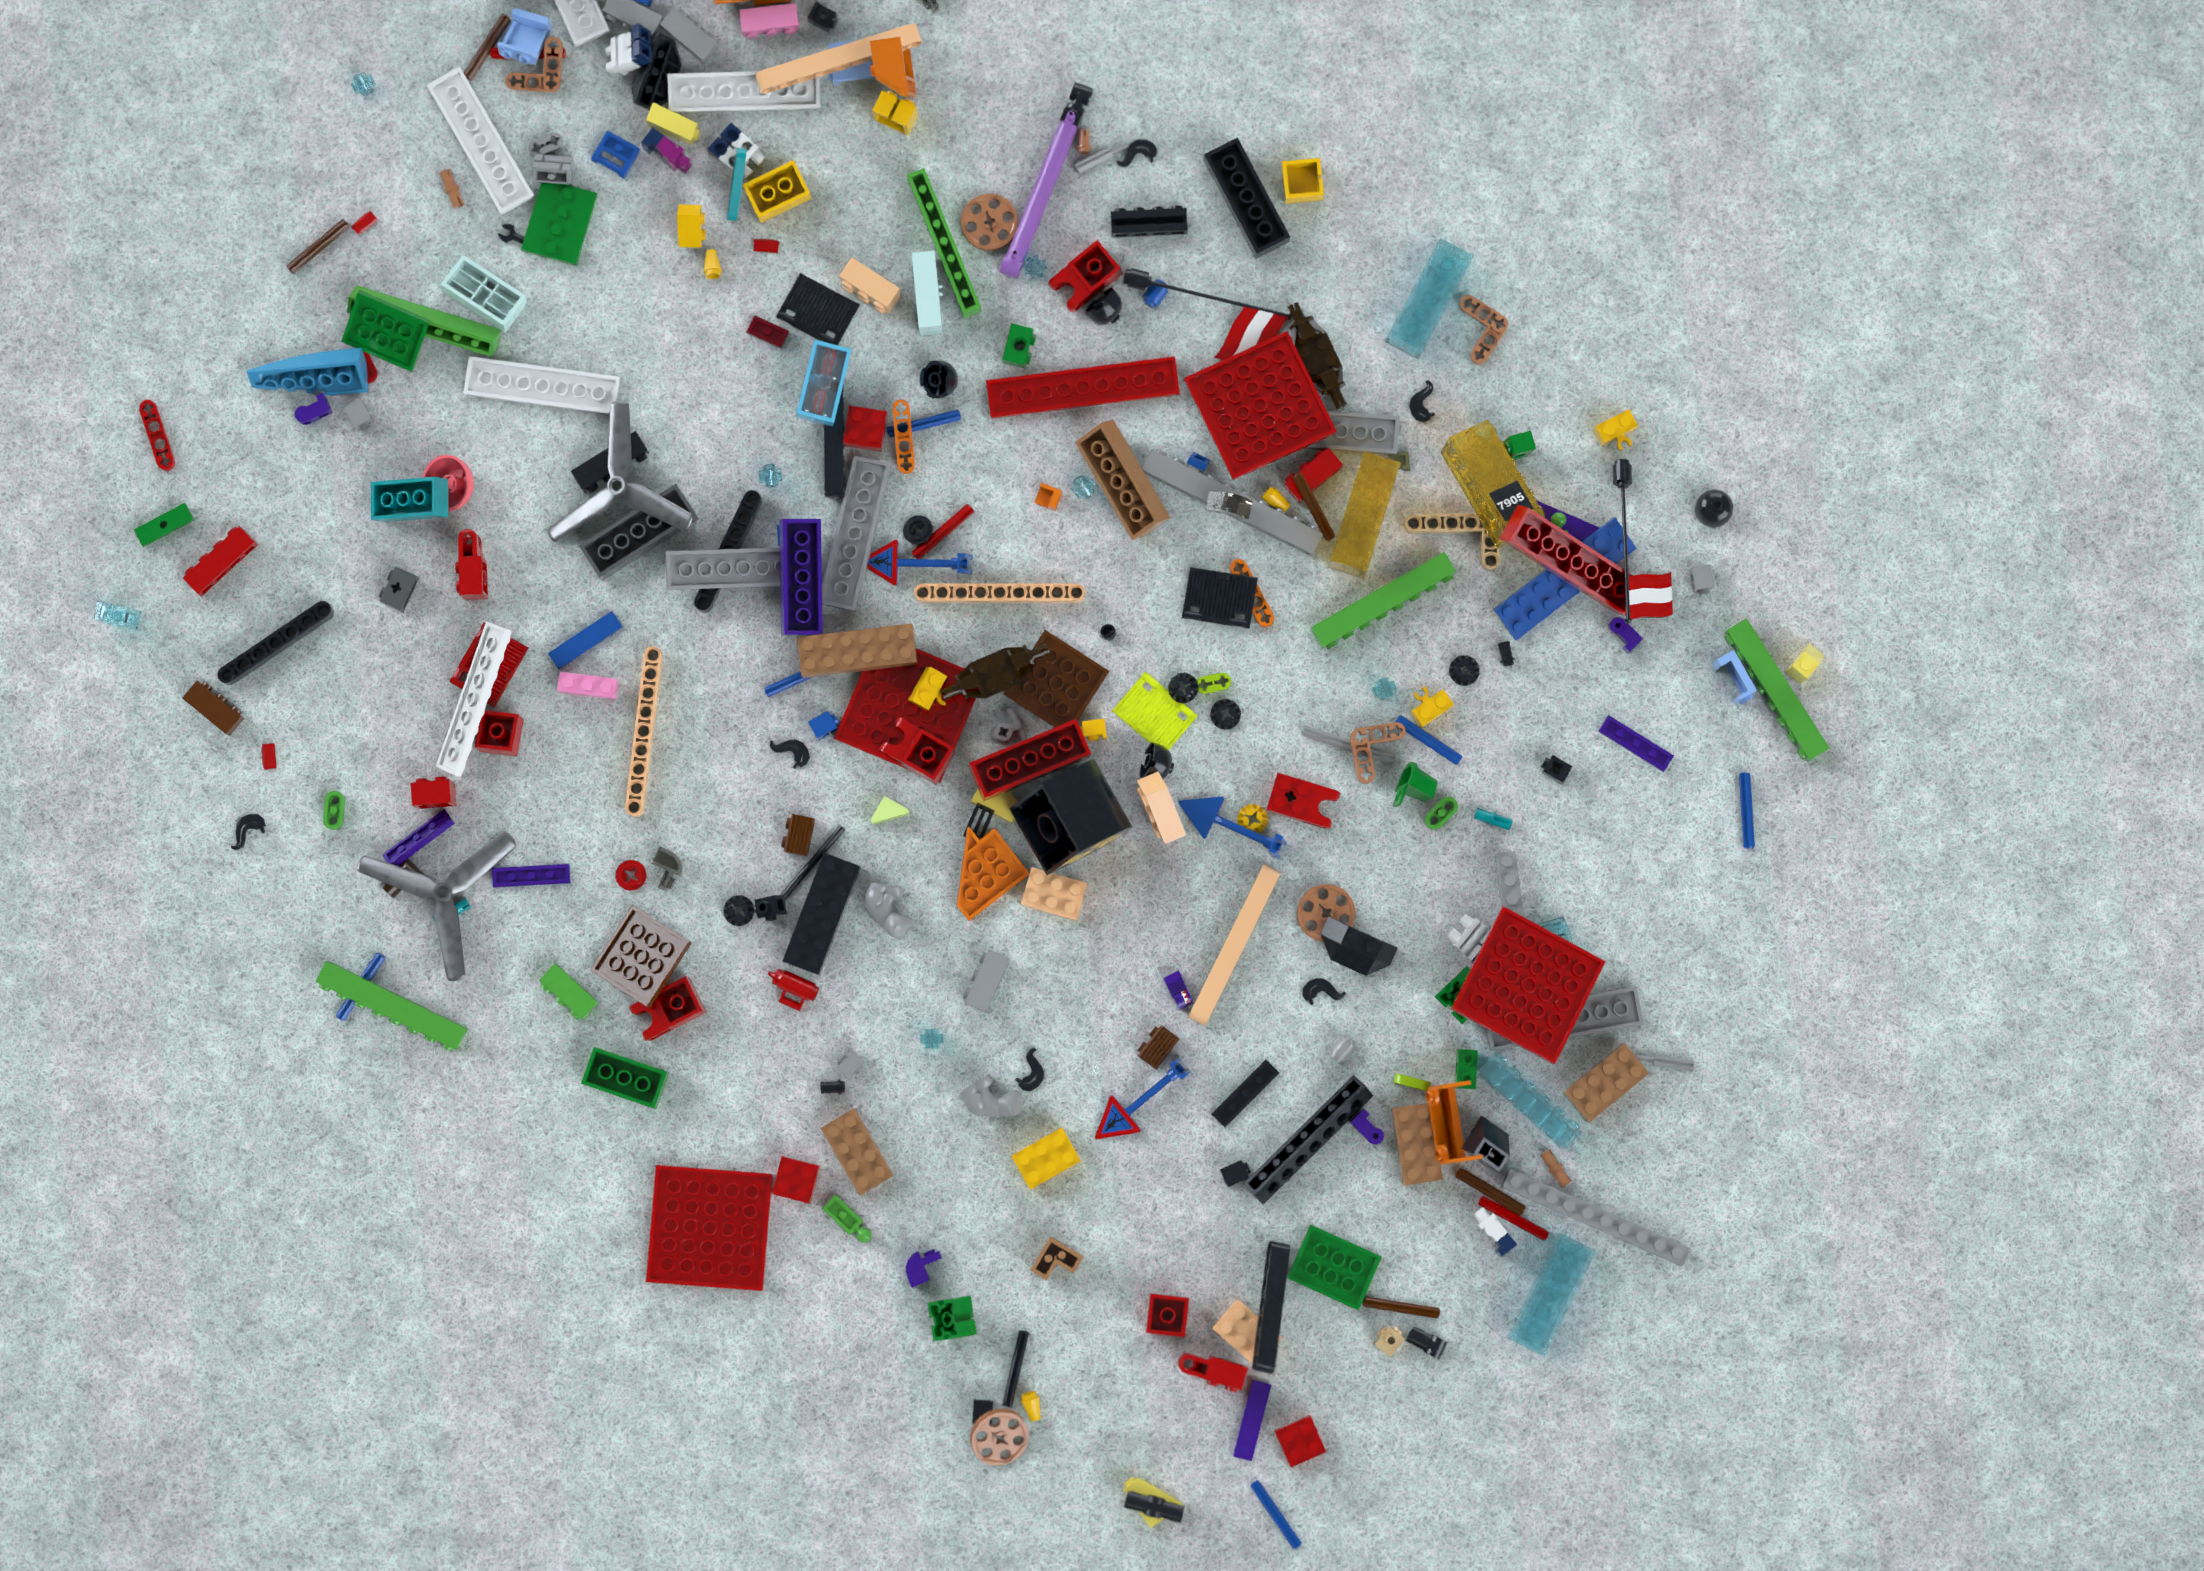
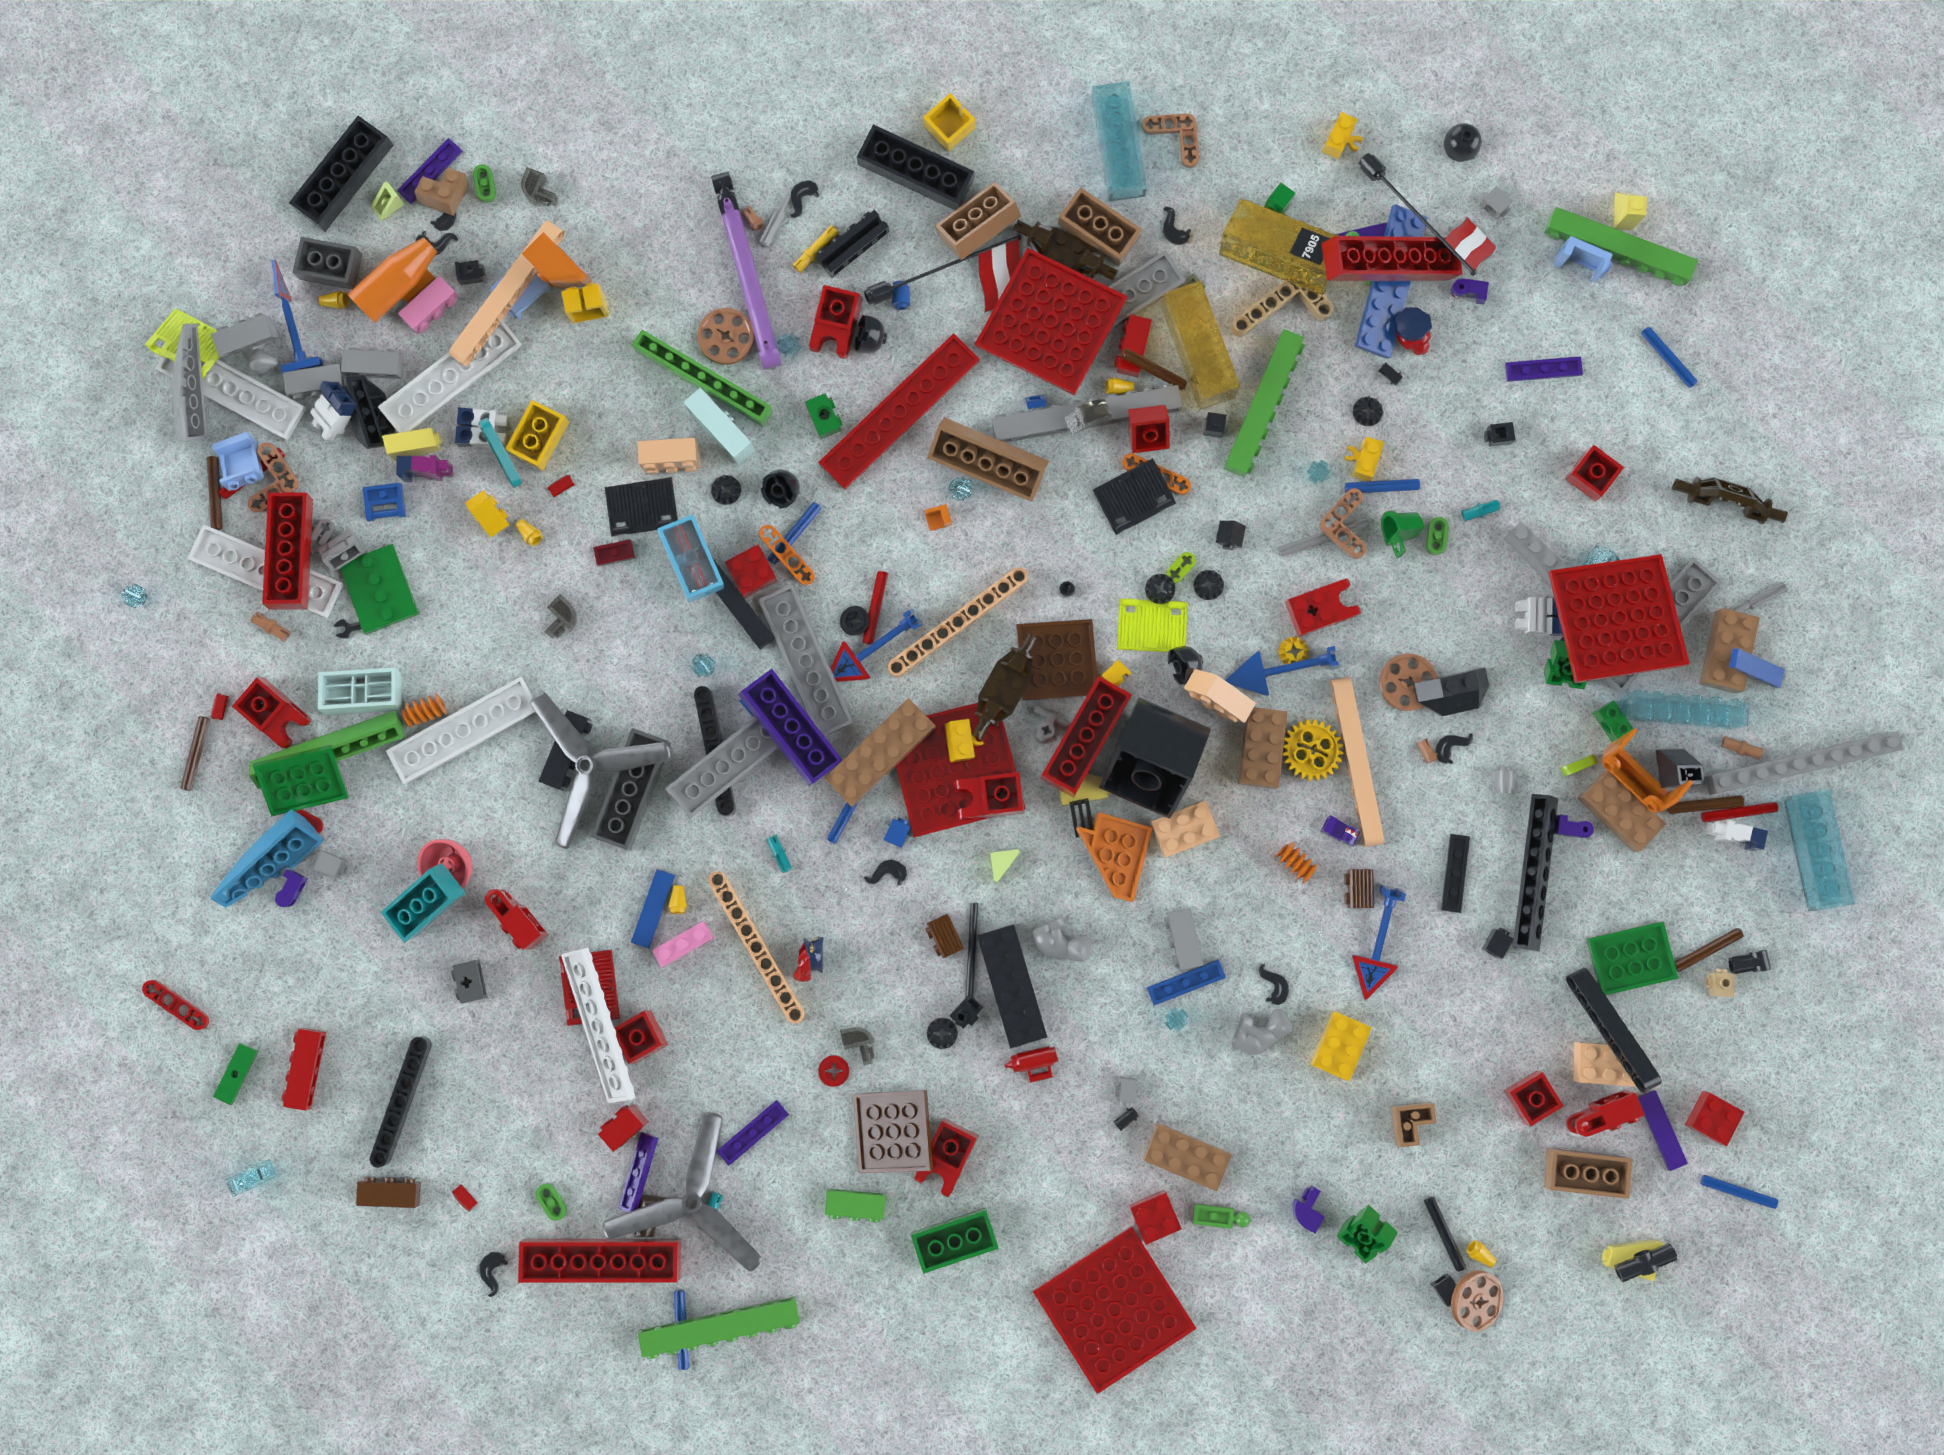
camera: 35 degrees left, 0 degrees up
(338, 883) = (599, 1261): none -> red brick
(402, 263) = (276, 713): none -> red brick
(510, 139) = (287, 551): none -> red brick
(523, 347) = (424, 710): none -> orange piece
(609, 649) = (678, 900): none -> yellow cone
(678, 772) = (809, 959): none -> piece
(691, 353) = (565, 614): none -> clear smoke brick
(717, 671) = (779, 853): none -> teal axle
(902, 353) = (735, 490): none -> black gear
(962, 1016) = (1186, 982): none -> blue tile
(1109, 205) = (810, 253): none -> yellow pin
(1123, 987) = (1296, 861): none -> orange piece
(1165, 1405) = (1588, 1173): none -> medium nougat brick
(1166, 876) = (1262, 748): none -> medium nougat brick
(1220, 898) = (1306, 766): none -> yellow gear
(1263, 279) = (978, 220): none -> medium nougat brick
(1271, 551) = (1149, 429): none -> red brick
(1272, 686) = (1230, 534): none -> black brick
(1297, 979) = (1427, 751): none -> nougat pin
(1329, 588) = (1214, 424): none -> black brick
(1359, 357) = (1099, 226): none -> medium nougat brick
(1551, 631) = (1414, 330): none -> dark blue piece
(1607, 857) = (1594, 473): none -> red brick
(1614, 1111) = (1756, 668): none -> tile
(1708, 957) = (1730, 491): none -> dark brown plate

